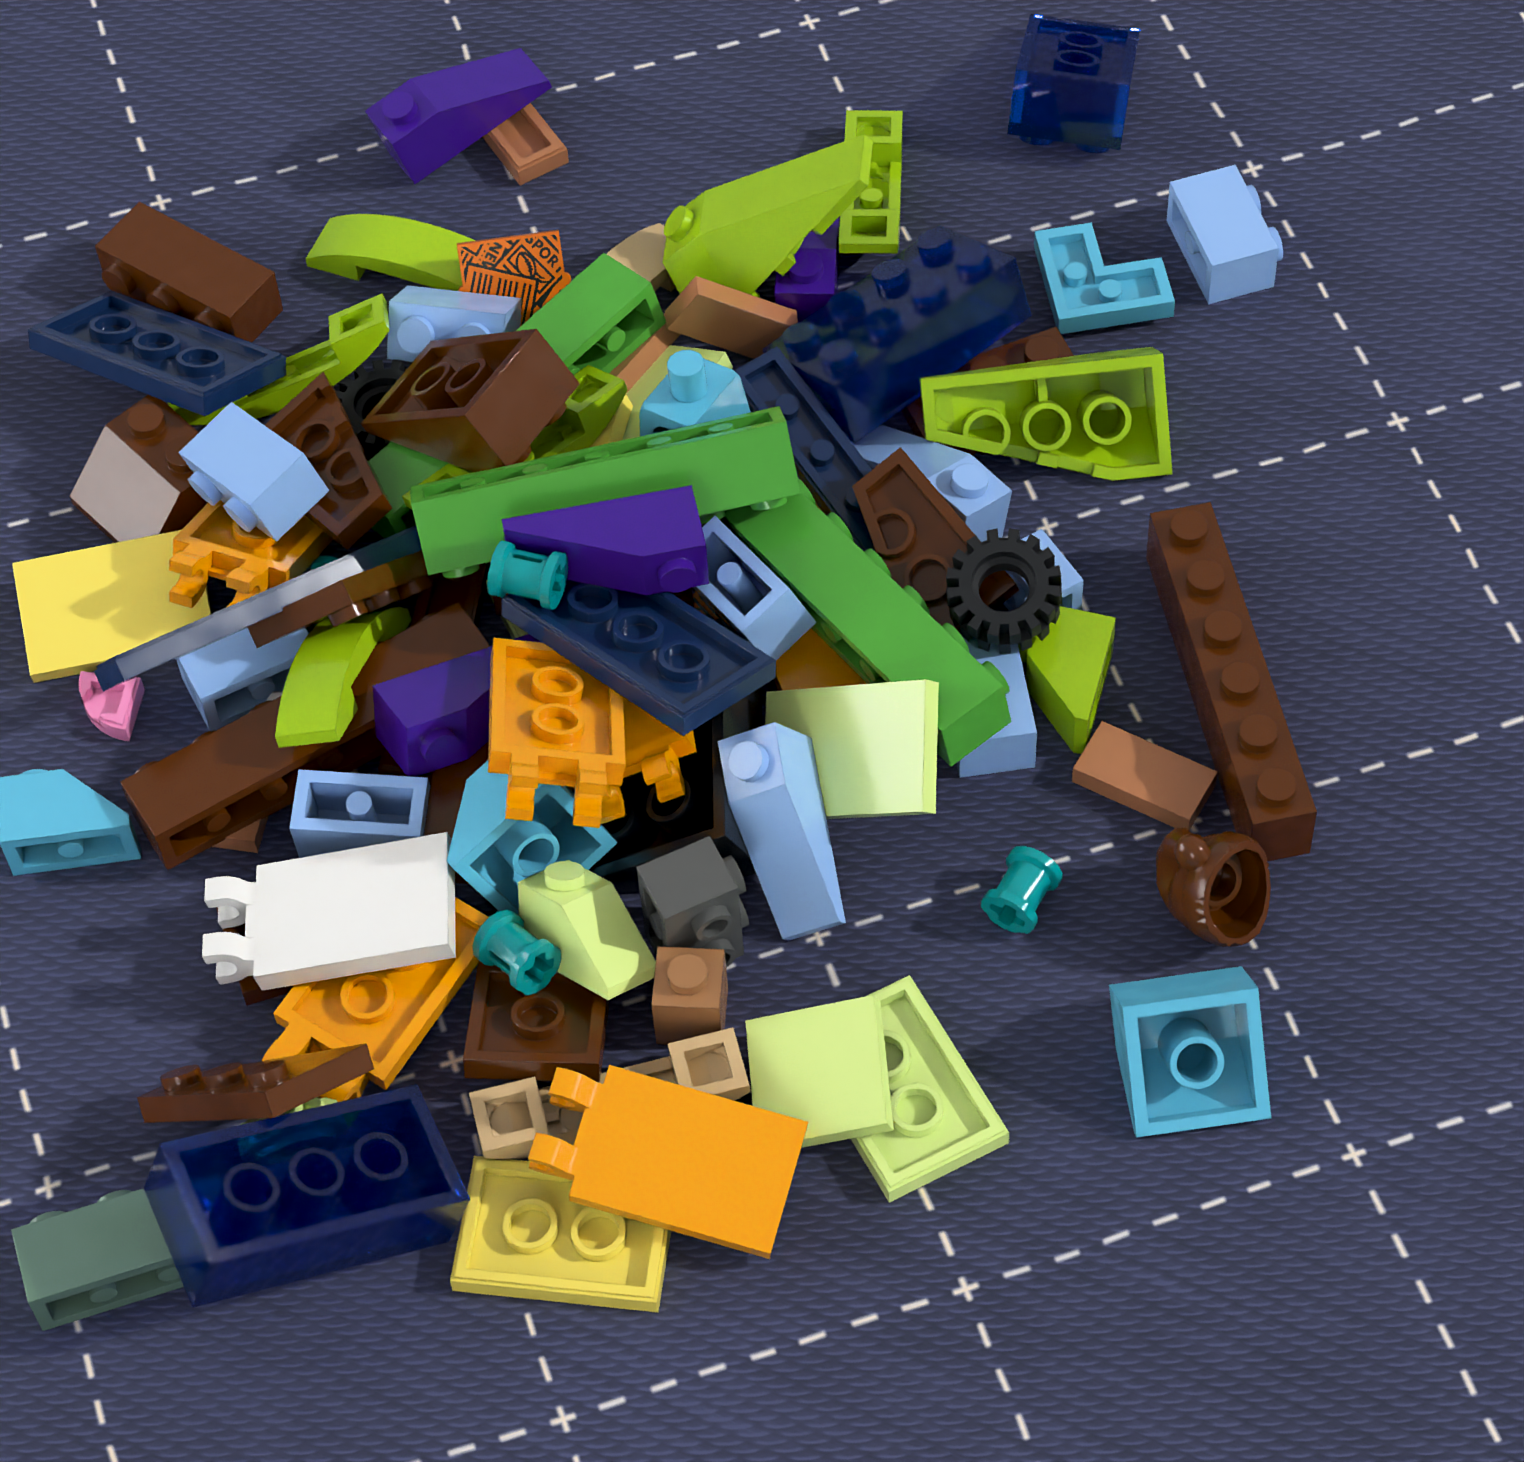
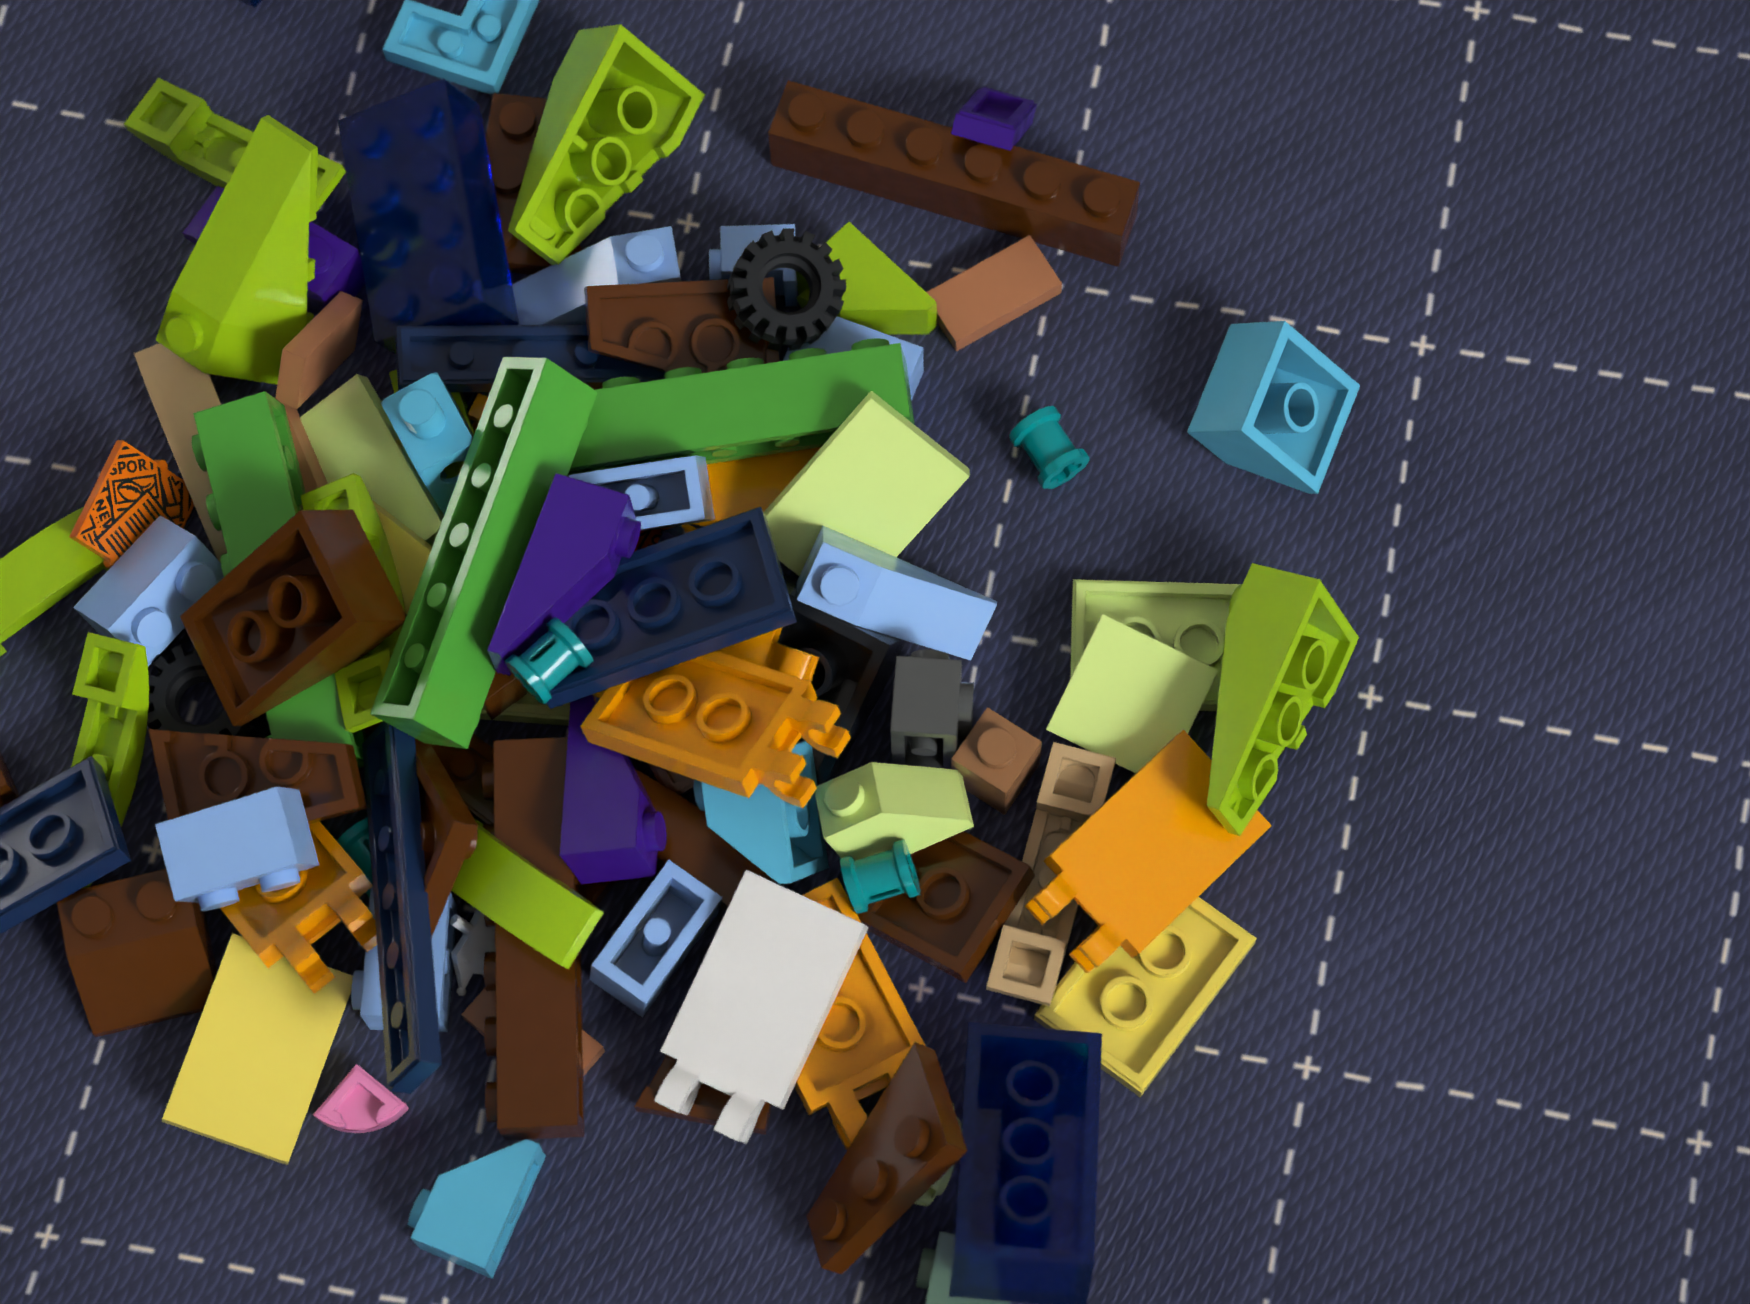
camera: 60 degrees left, 15 degrees up
(907, 1171) = (1279, 659): none -> lime wedge
(1215, 884) = (1144, 301): reddish brown piece -> none
(1299, 676) = (994, 118): none -> dark purple tile

